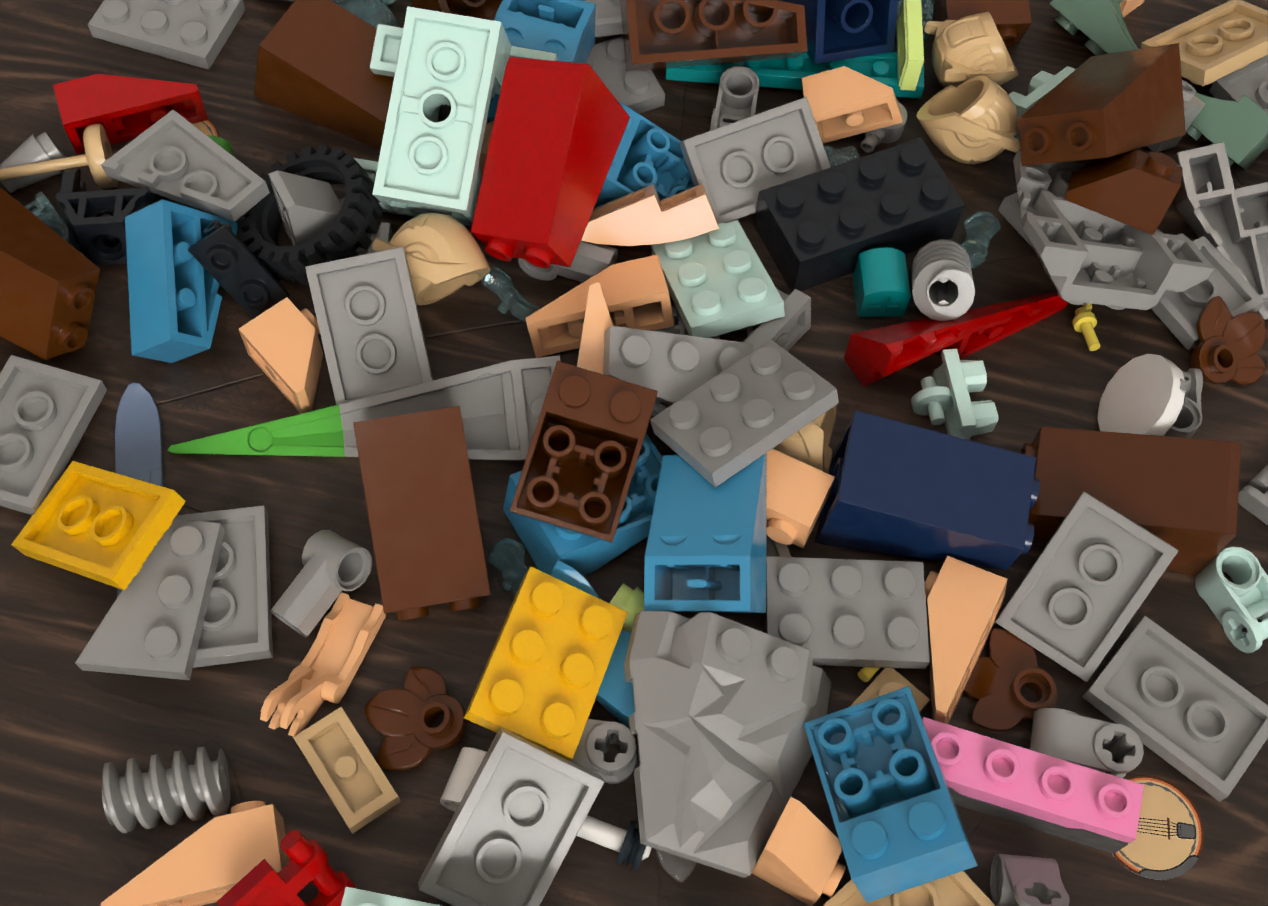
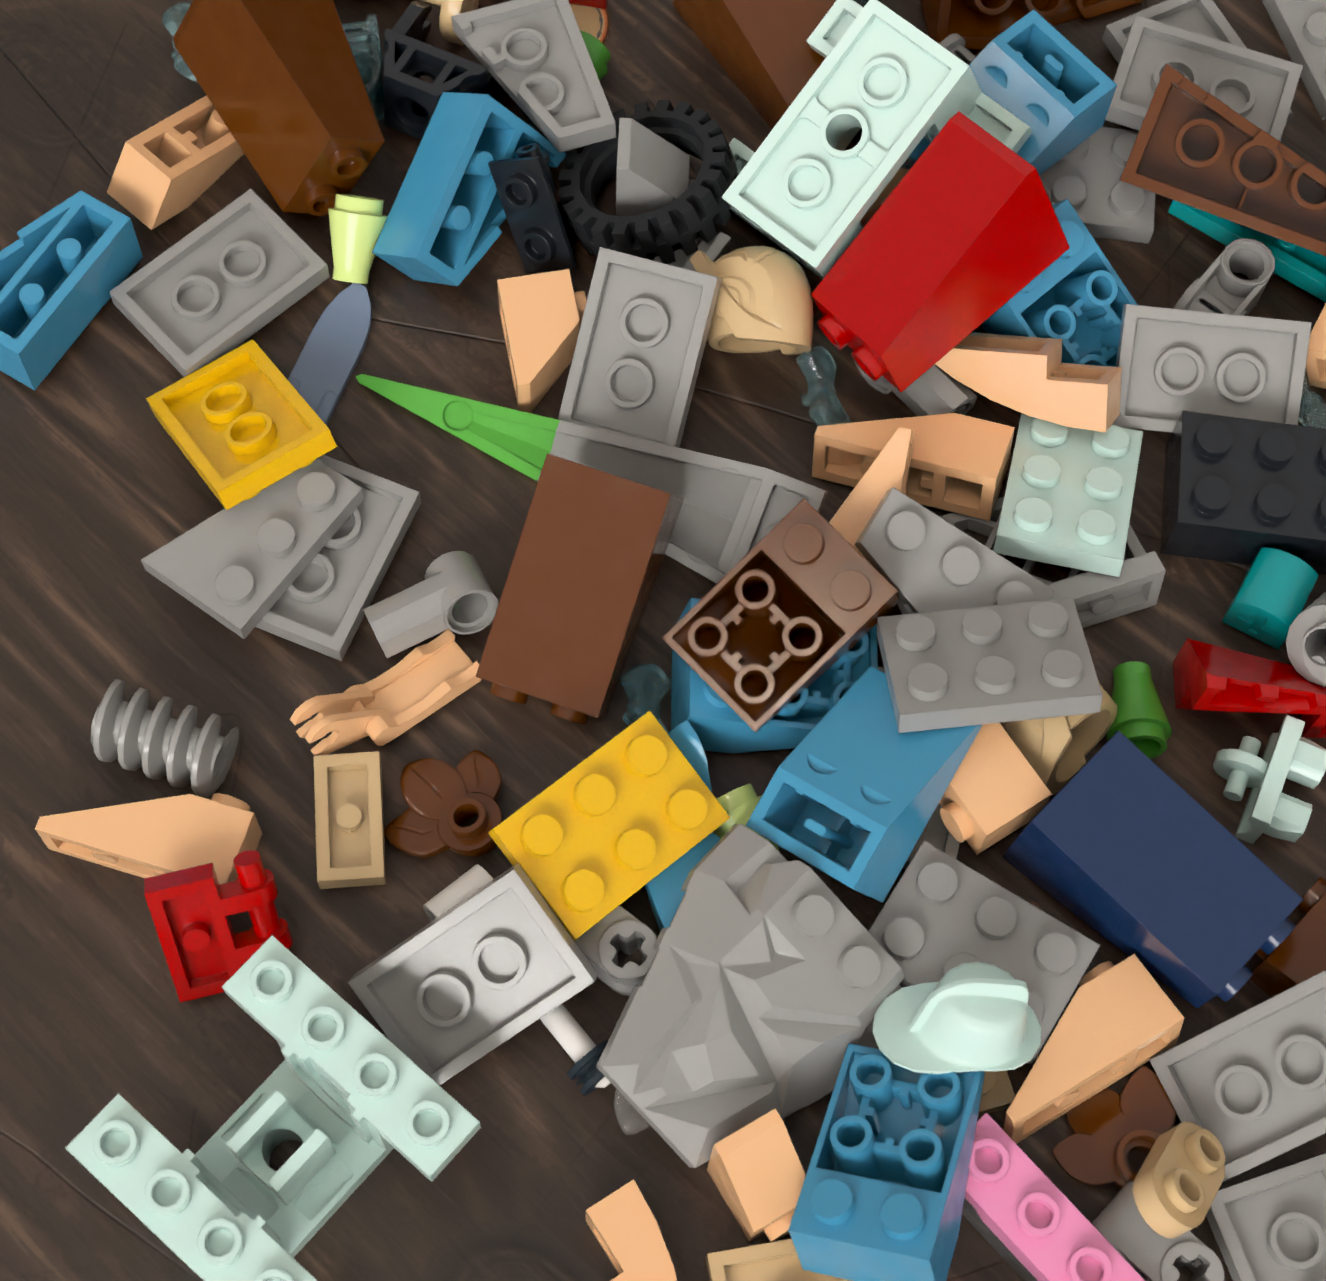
camera: 30 degrees right, 5 degrees up
(110, 347) = (354, 232): none -> yellowish green cone
(850, 397) = (1139, 709): none -> bright green cone
(872, 664) = (961, 1024): none -> light aqua piece
(1071, 688) = (1179, 1179): none -> tan plate

